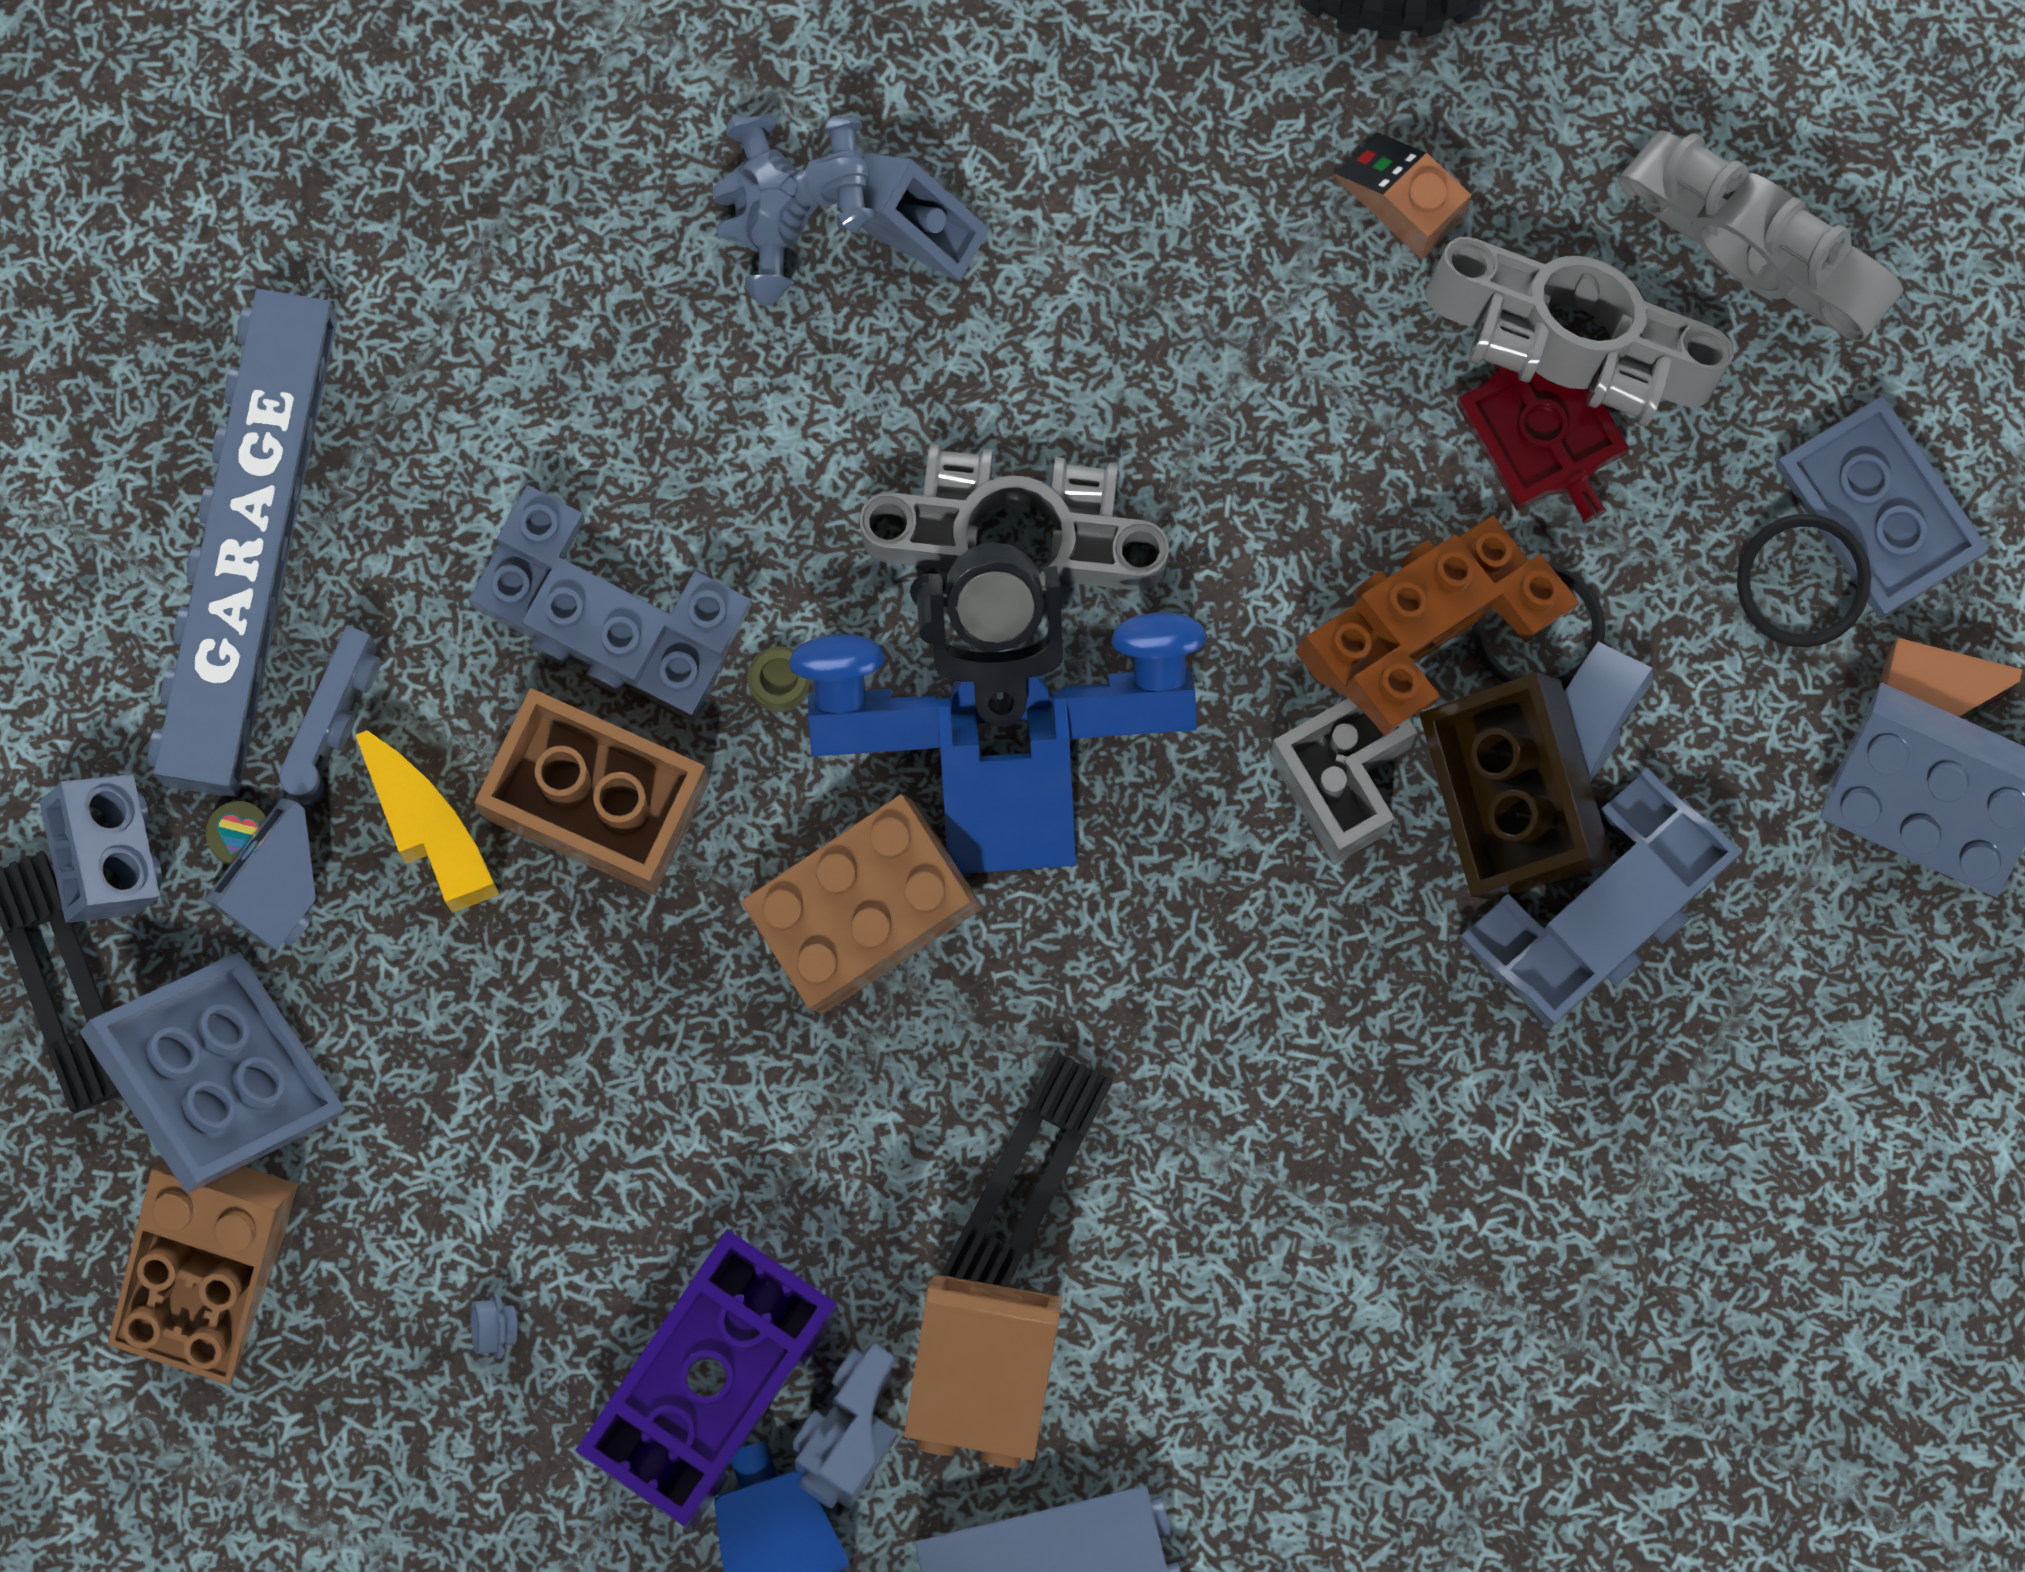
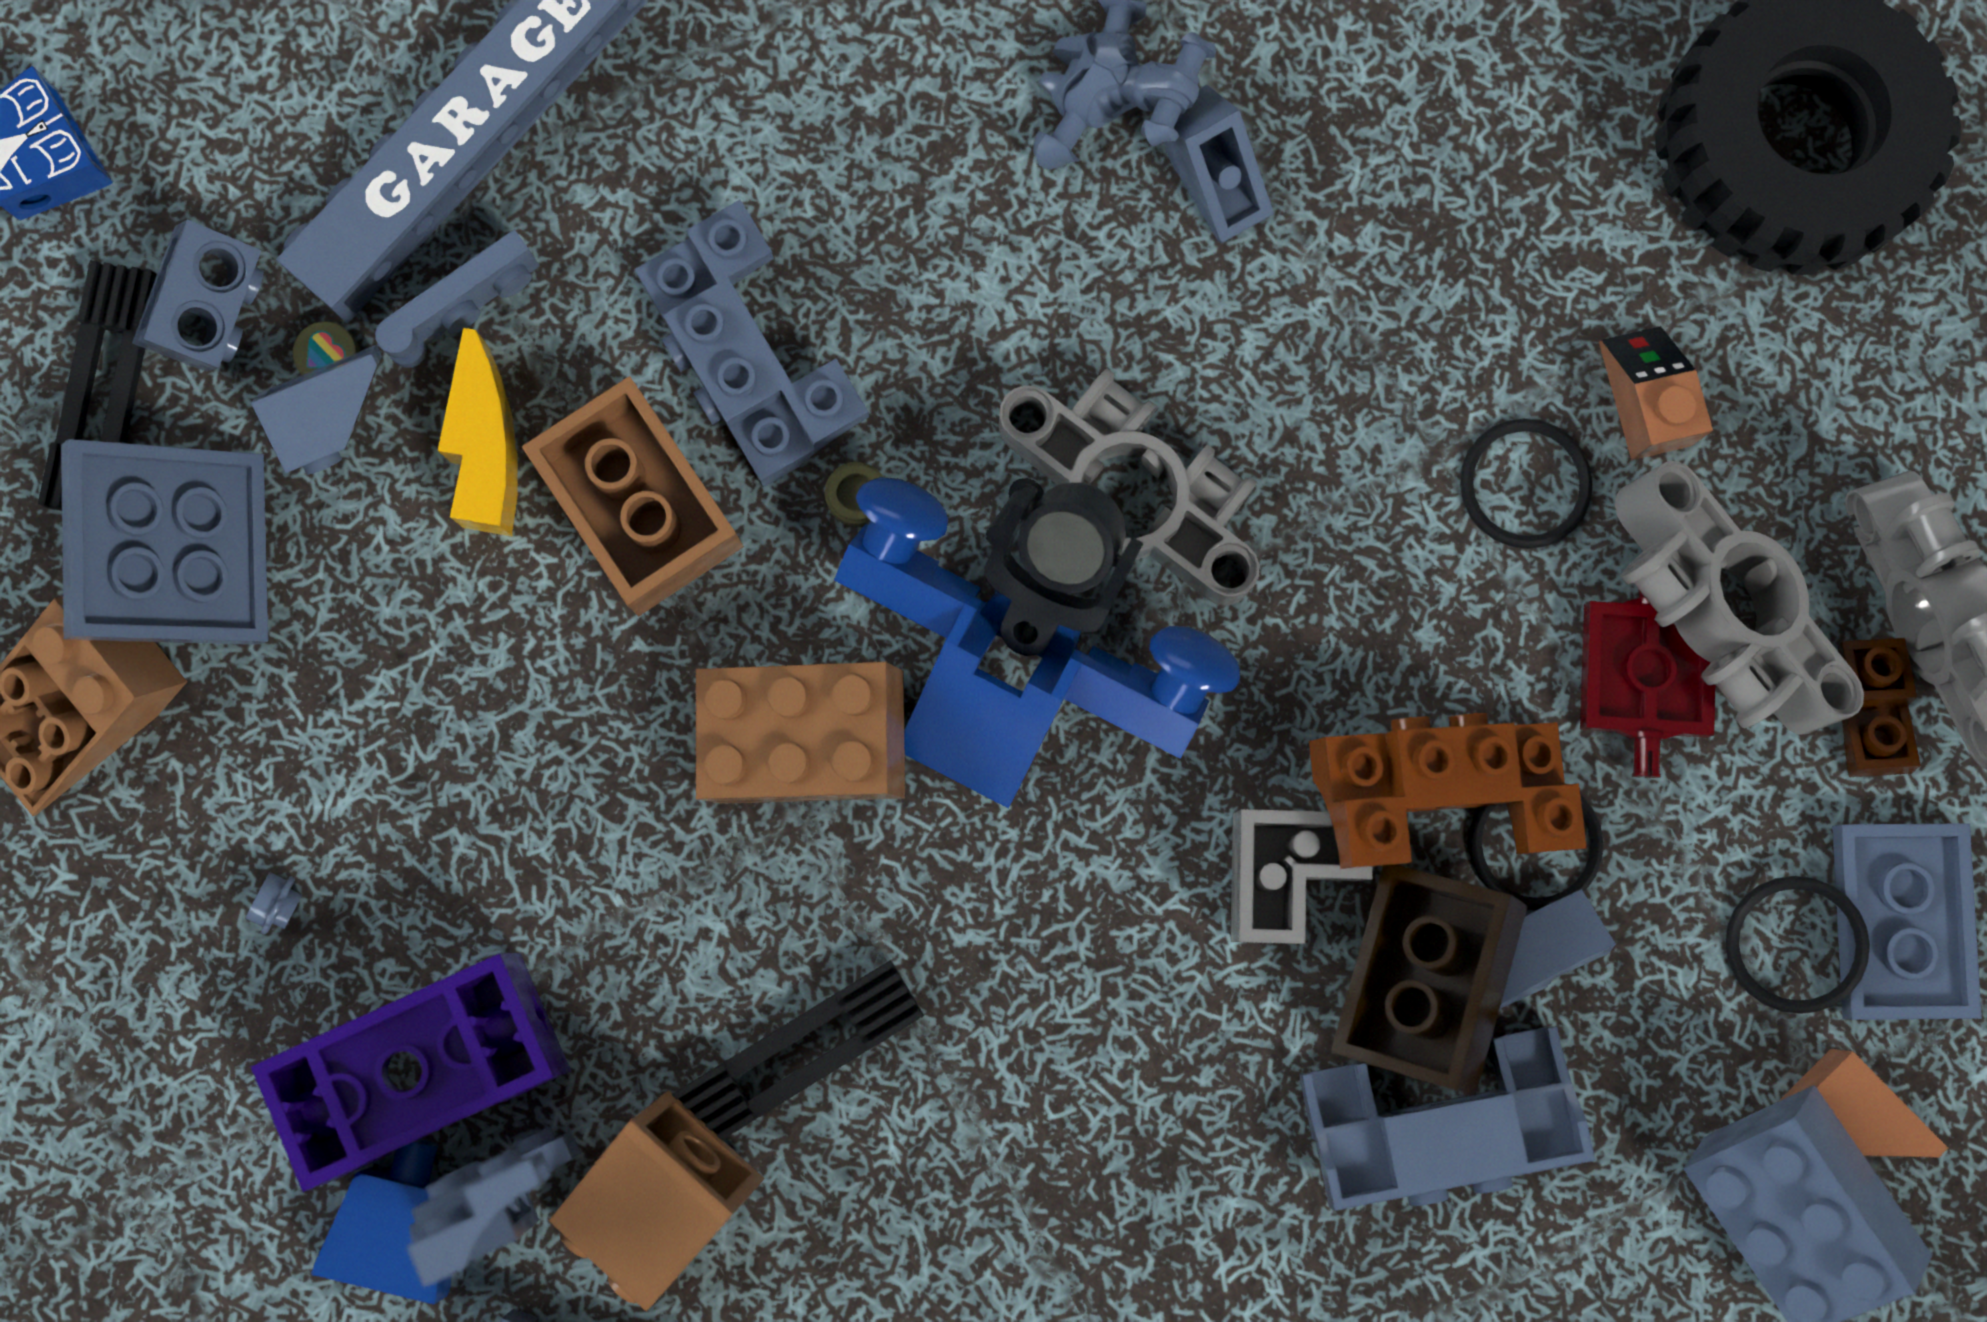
camera: 30 degrees right, 5 degrees up
(1366, 279) = (1561, 438): none -> black tyre
(1763, 358) = (1881, 734): none -> reddish brown slope

